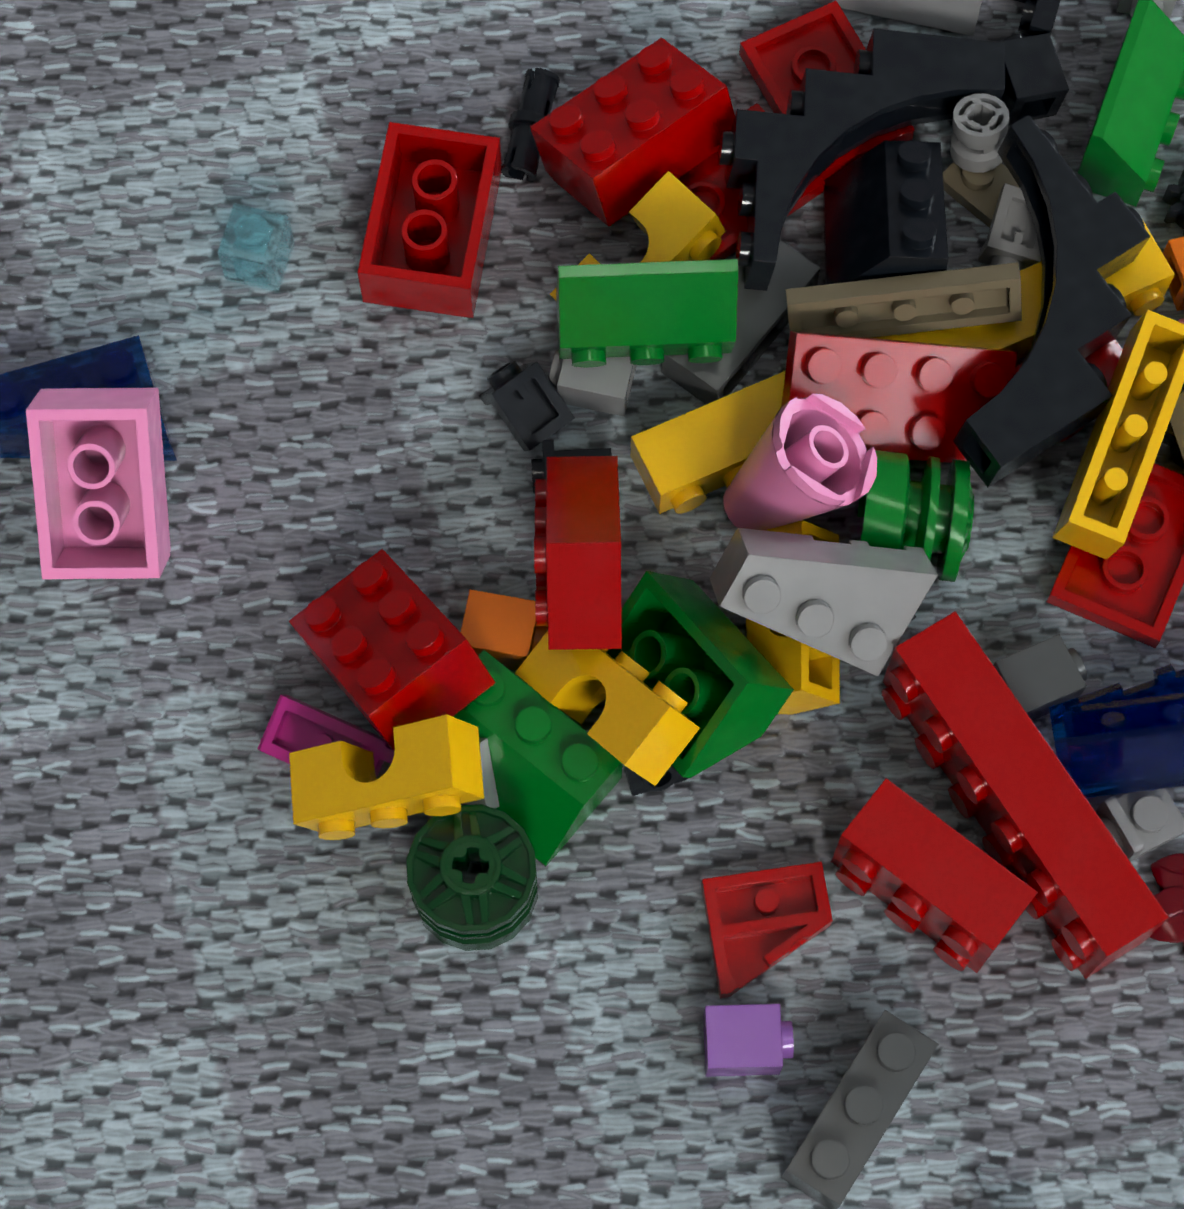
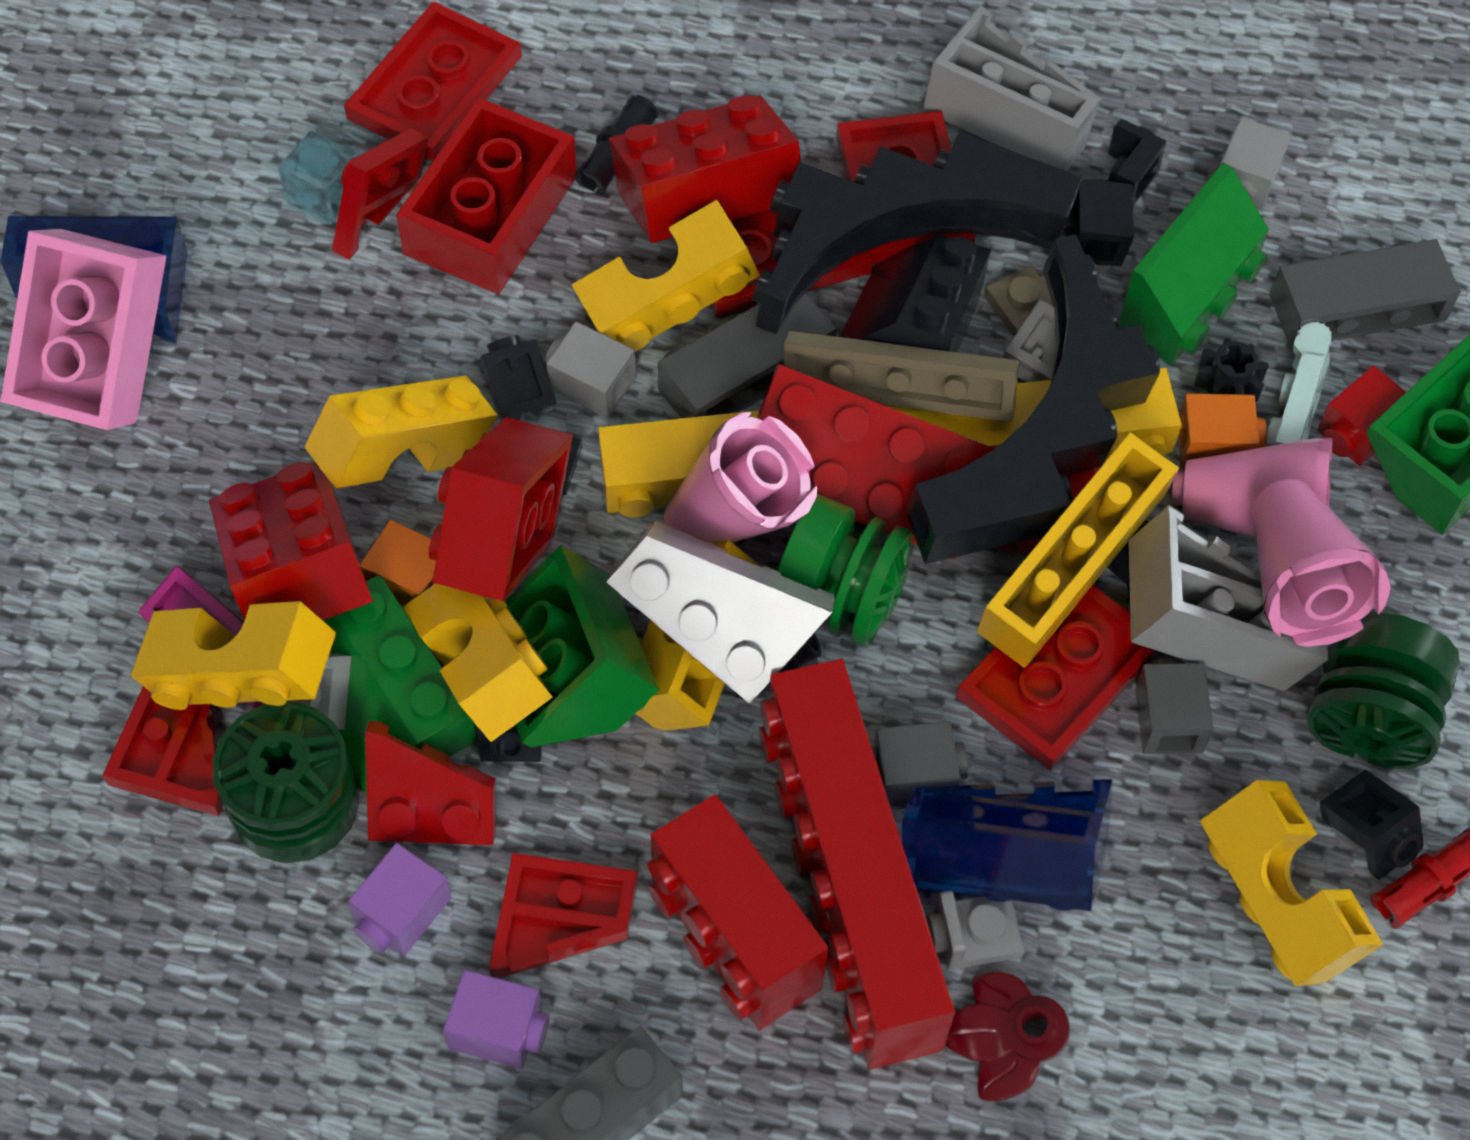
camera: 15 degrees right, 10 degrees down
(315, 240) = (376, 185): none -> red wing
(323, 106) = (433, 77): none -> red plate
(344, 882) = (167, 755): none -> red wing
(462, 482) = (370, 428): none -> yellow arch
(603, 849) = (425, 794): none -> red wing
(614, 957) = (398, 901): none -> medium lavender brick
(647, 311) = (644, 308): green slope -> none
(978, 132) = (1029, 244): light grey wheel -> none

